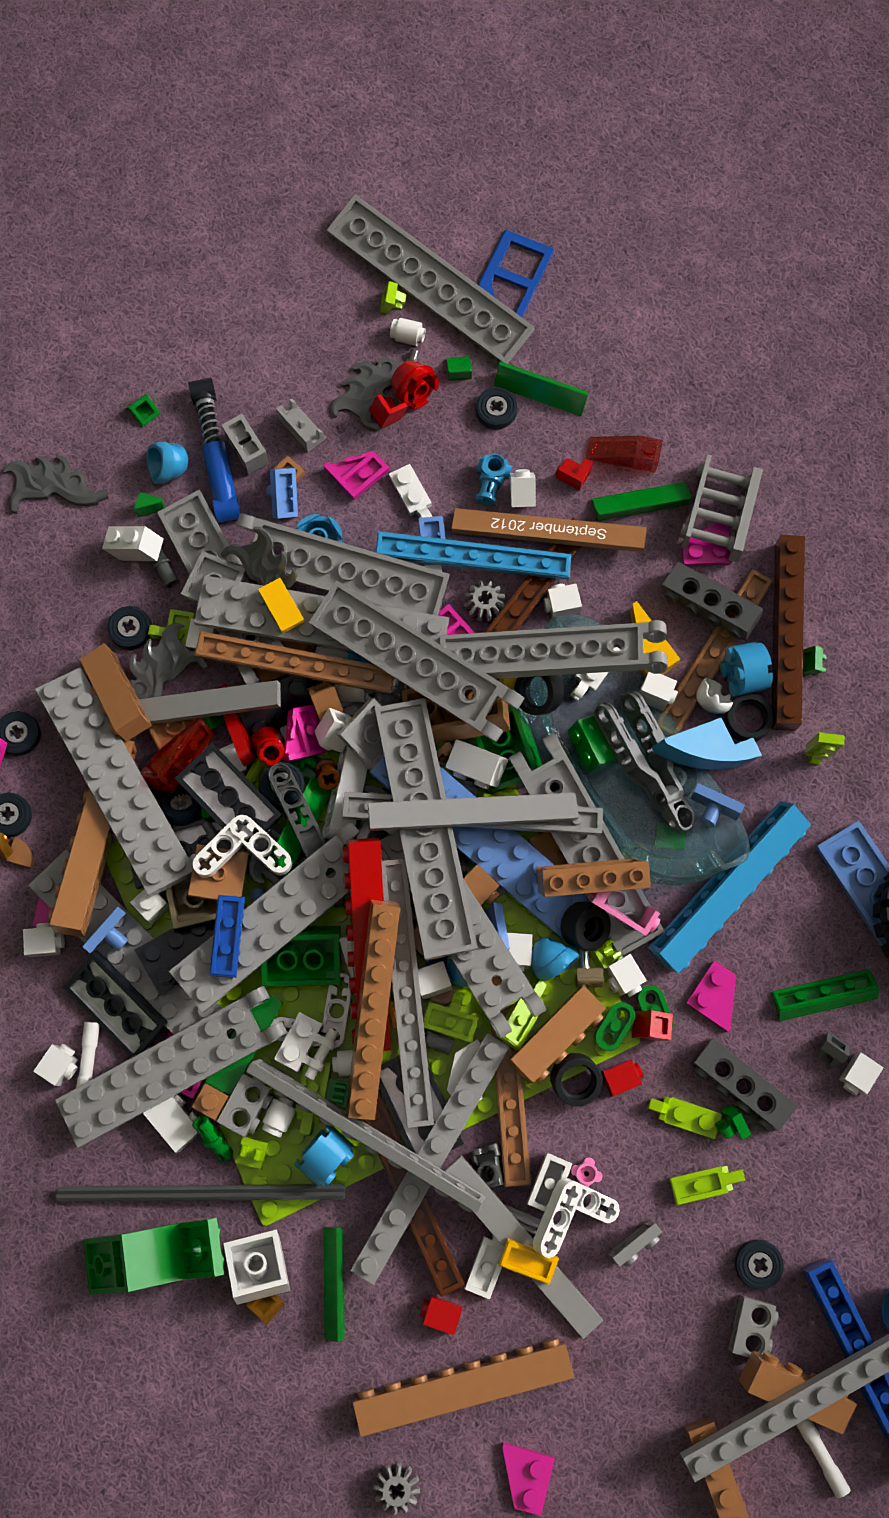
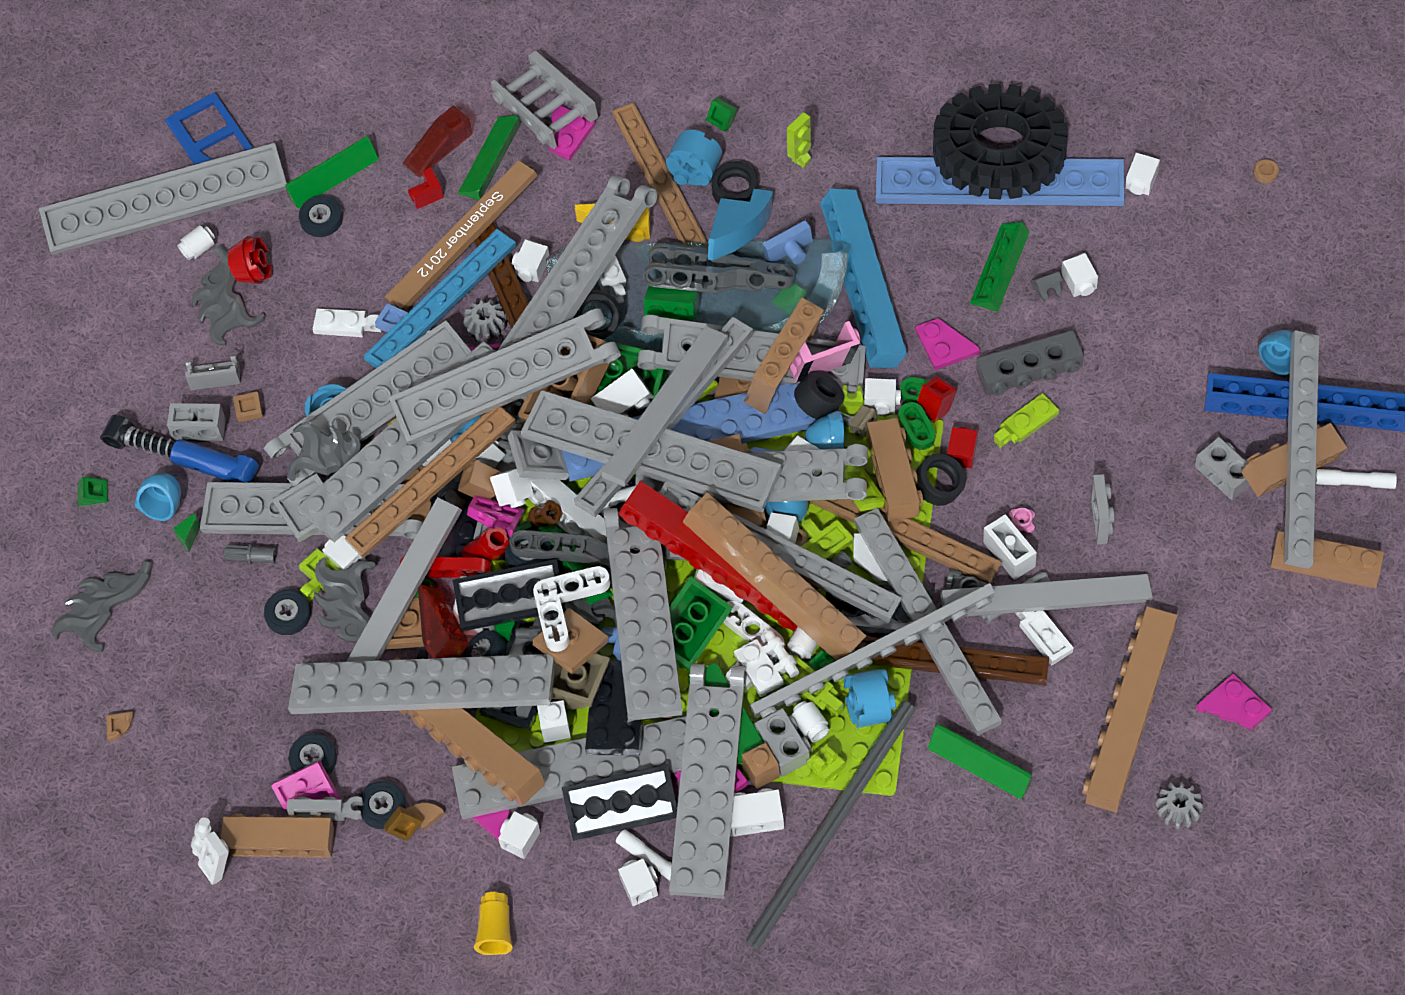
camera: 50 degrees left, 15 degrees down
(108, 932) = (553, 763): medium blue tile -> none
(115, 693) = (342, 644): medium nougat brick -> none
(132, 543) = (216, 559): white brick -> none
(153, 1256) = (859, 882): green bracket -> none
(212, 1138) = (792, 784): green pin -> none
(227, 936) = (632, 650): blue tile -> none
(256, 1267) = (925, 807): white brick -> none
(266, 1307) = (961, 824): pearl gold plate -> none
(281, 605) = (374, 457): yellow tile -> none
(283, 492) = (264, 417): medium blue tile -> none
(357, 473) = (292, 353): dark pink wing -> none
(386, 411) = (255, 298): red panel -> none
(391, 298) = (155, 237): lime tile -> none
(441, 1314) = (1061, 691): red brick -> none
(459, 368) = (261, 224): green slope -> none
(490, 478) = (380, 255): dark azure connector -> none
(522, 488) = (410, 233): white brick -> none
(526, 1261) = (1061, 594): yellow tile -> none
(572, 1202) = (1032, 534): white beam -> none
(658, 690) = (661, 231): white brick -> none
(704, 1184) = (1089, 438): lime hinge -> none
(705, 589) = (622, 142): dark grey brick -> none
(711, 699) = (699, 202): white hair -> none
(732, 1124) = (1055, 386): green tile -> none
(745, 1267) = (1174, 446): black bush -> none
(788, 632) = (683, 112): reddish brown brick -> none

